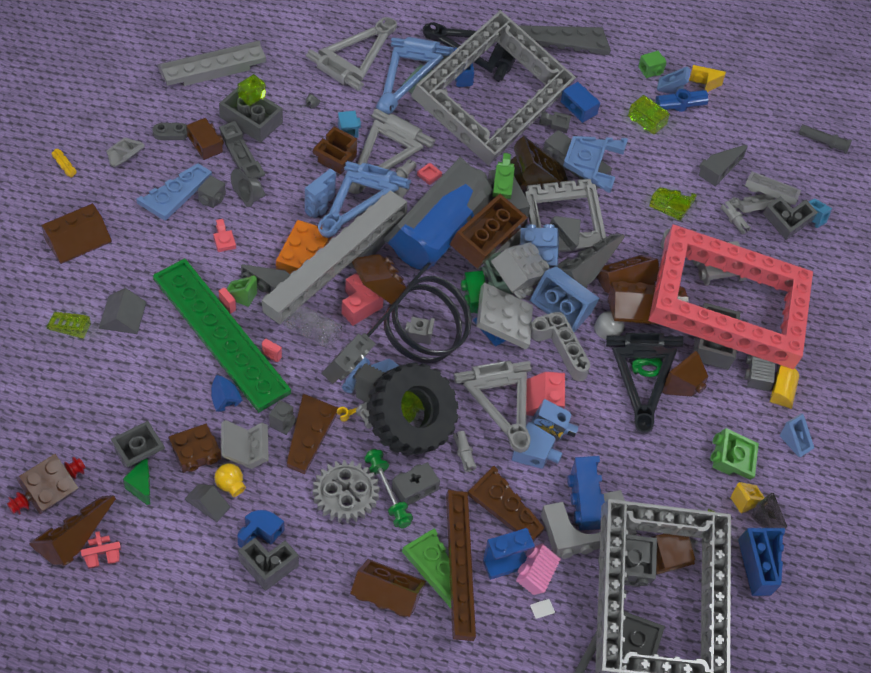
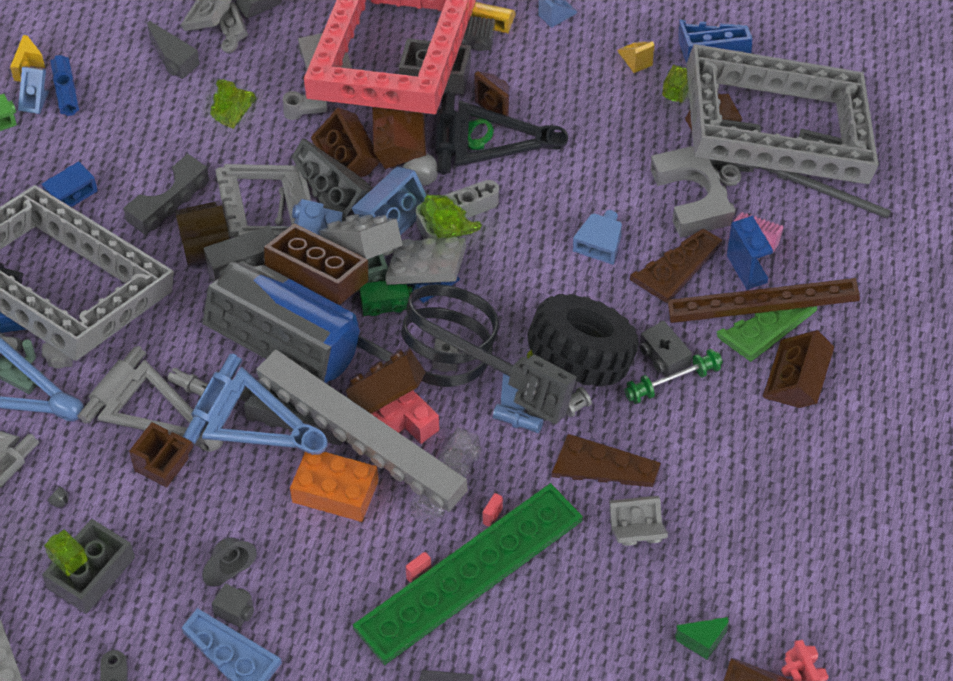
camera: 85 degrees left, 0 degrees up
(137, 444) = (664, 635): dark grey slope -> none
(195, 448) = (644, 583): reddish brown plate -> none
(204, 138) = (133, 624): reddish brown brick -> none
(208, 501) = (714, 564): dark grey slope -> none
(223, 239) = (311, 585): coral plate -> none
(224, 393) = (562, 558): blue brick -> none
(229, 479) = (685, 538): yellow piece -> none
(239, 151) = (161, 577): dark grey slope -> none
(243, 290) = (400, 551): bright green slope -> none
(261, 524) = (743, 502): blue brick -> none
(266, 277) = (387, 512): dark grey slope -> none
(266, 566) = (796, 482): dark grey brick -> none
(282, 417) = (594, 485): dark grey brick -> none
(319, 193) = (242, 466): medium blue plate -> none
(334, 502) = (702, 429): light grey gear -> none
(340, 410) = (572, 425): yellow hand -> none
(349, 123) = (105, 448): dark azure brick -> none
(429, 173) = (188, 355): coral tile -> none
(464, 451) = (621, 302): light grey pin -> none
(500, 375) = (508, 277): light grey piece -> none
(504, 177) = (227, 249): bright green hinge -> none
(542, 608) = (793, 236): white sticker -> none
(545, 386) = (528, 228): coral slope -> none
(546, 329) = (446, 217): none -> clear neon green slope
(554, 420) = (568, 210): medium blue torso -> none
(557, 121) = (100, 211): dark grey plate -> none
(568, 230) = (295, 190): dark grey slope -> none
(586, 156) = (179, 175): medium blue wing -> none
(586, 492) = (657, 188): blue wedge -> none
(648, 114) = (89, 119): clear neon green brick -> none
(734, 454) = (586, 61): bright green plate -> none
(735, 217) = (253, 44): light grey pin -> none
(768, 513) = (660, 36): clear smoke slope -> none

